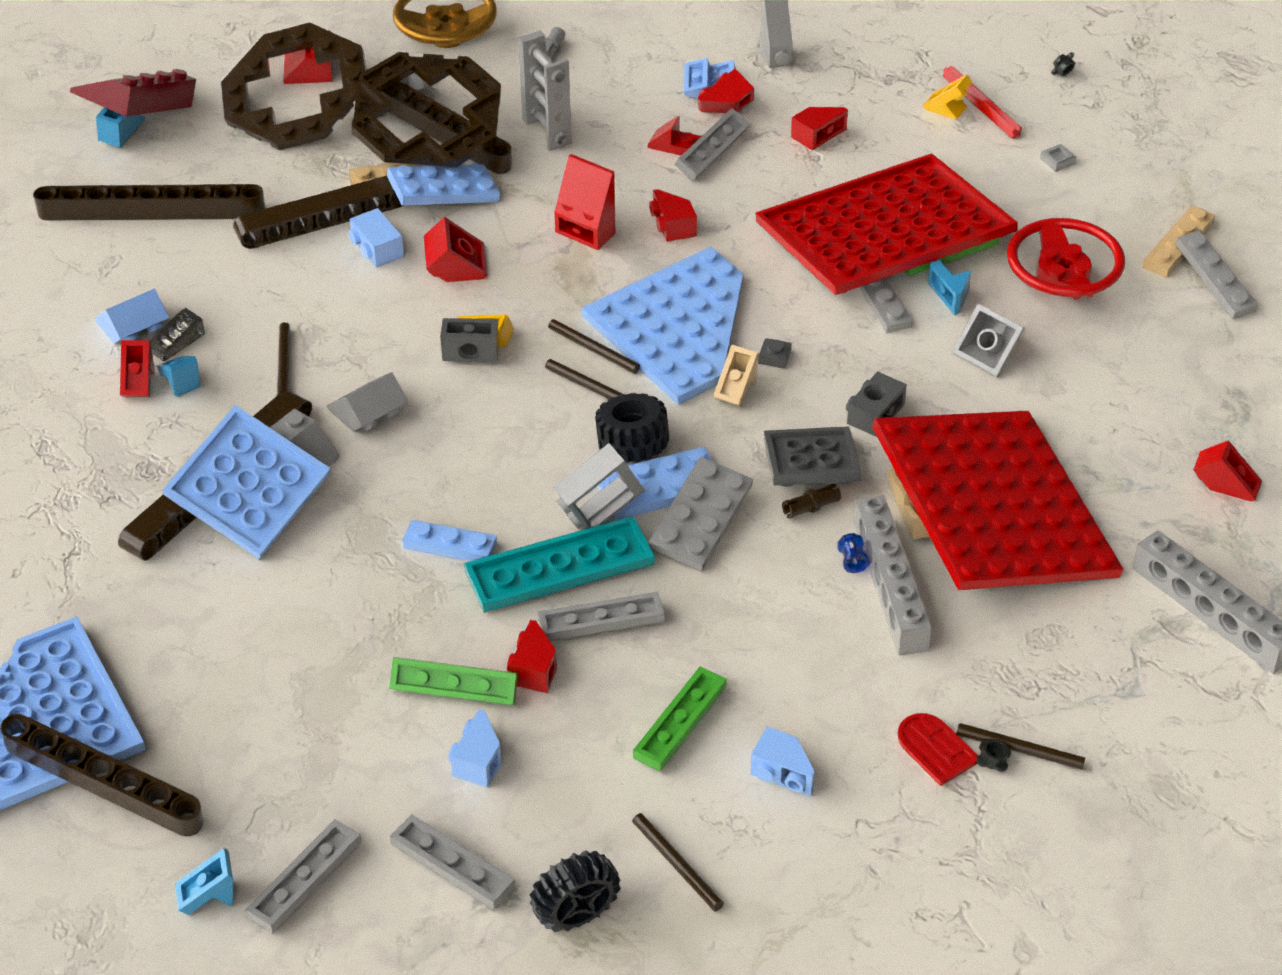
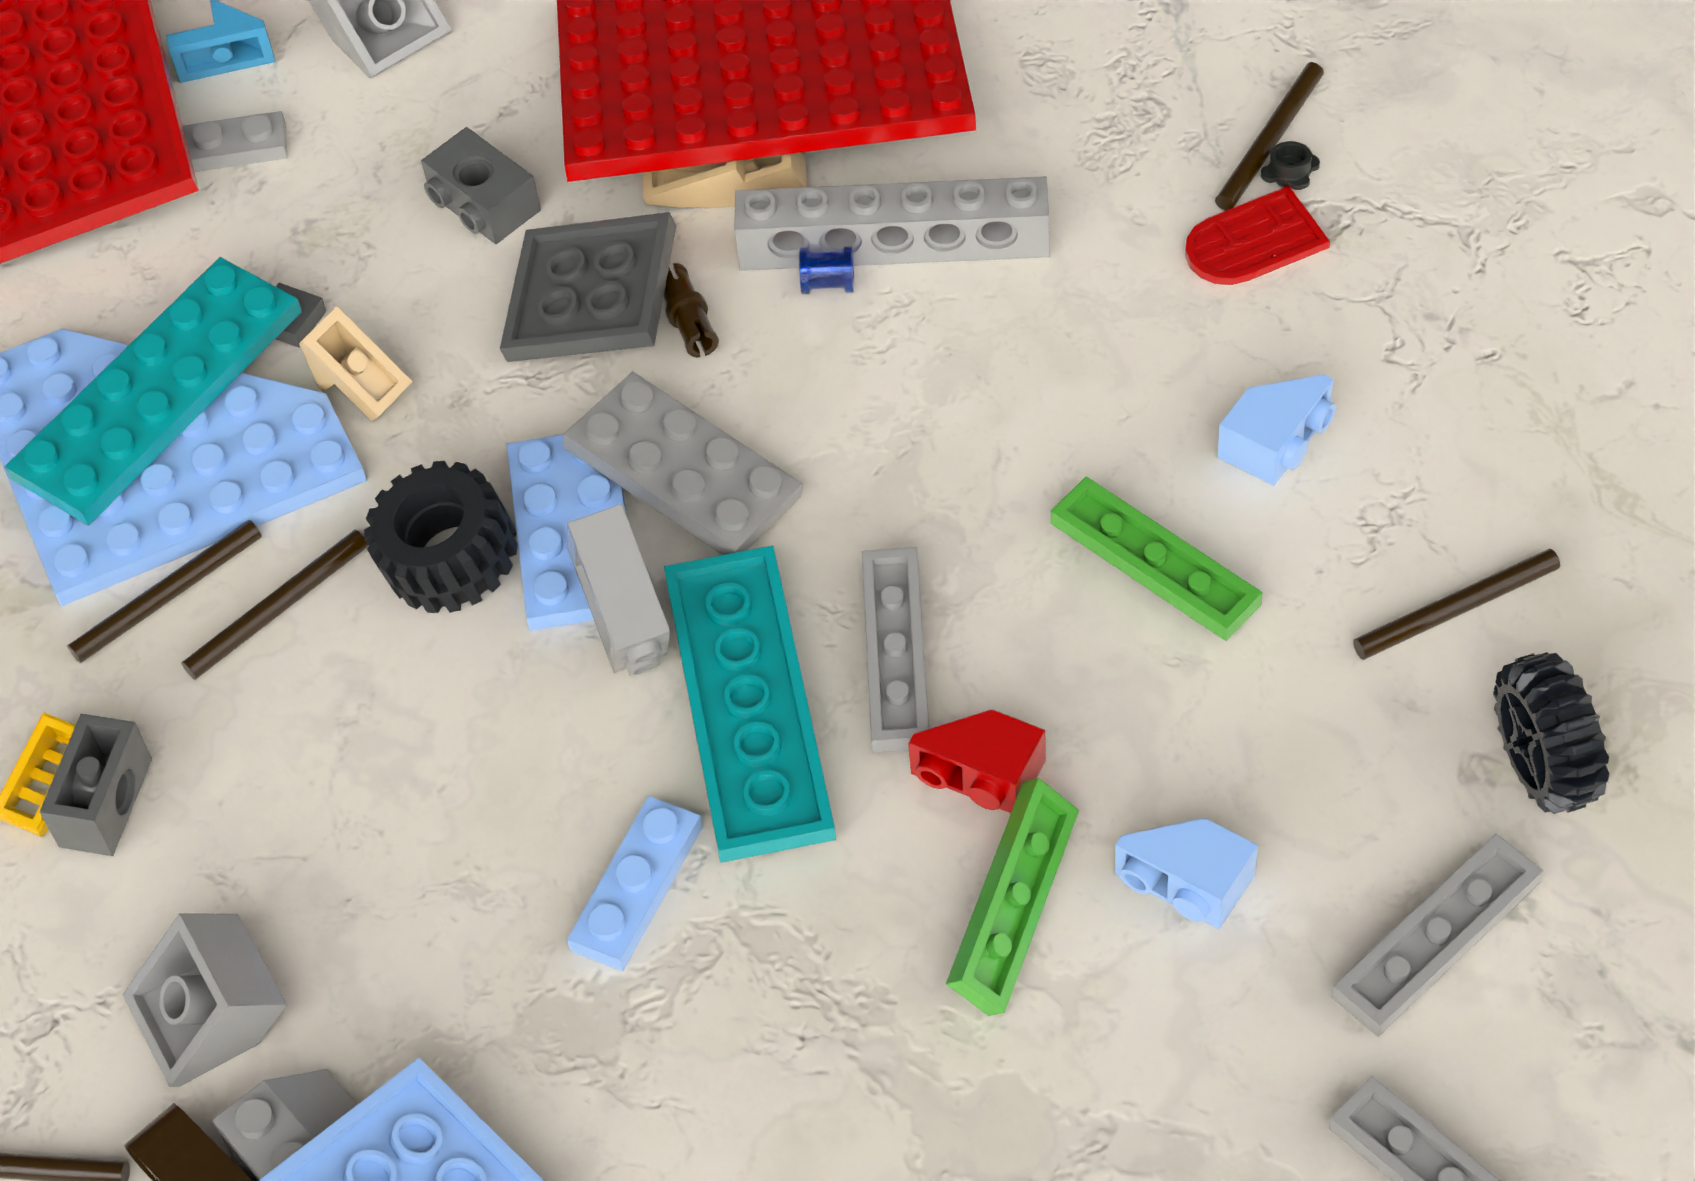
camera: 75 degrees left, 10 degrees up
(705, 309) = (153, 390): none -> teal plate

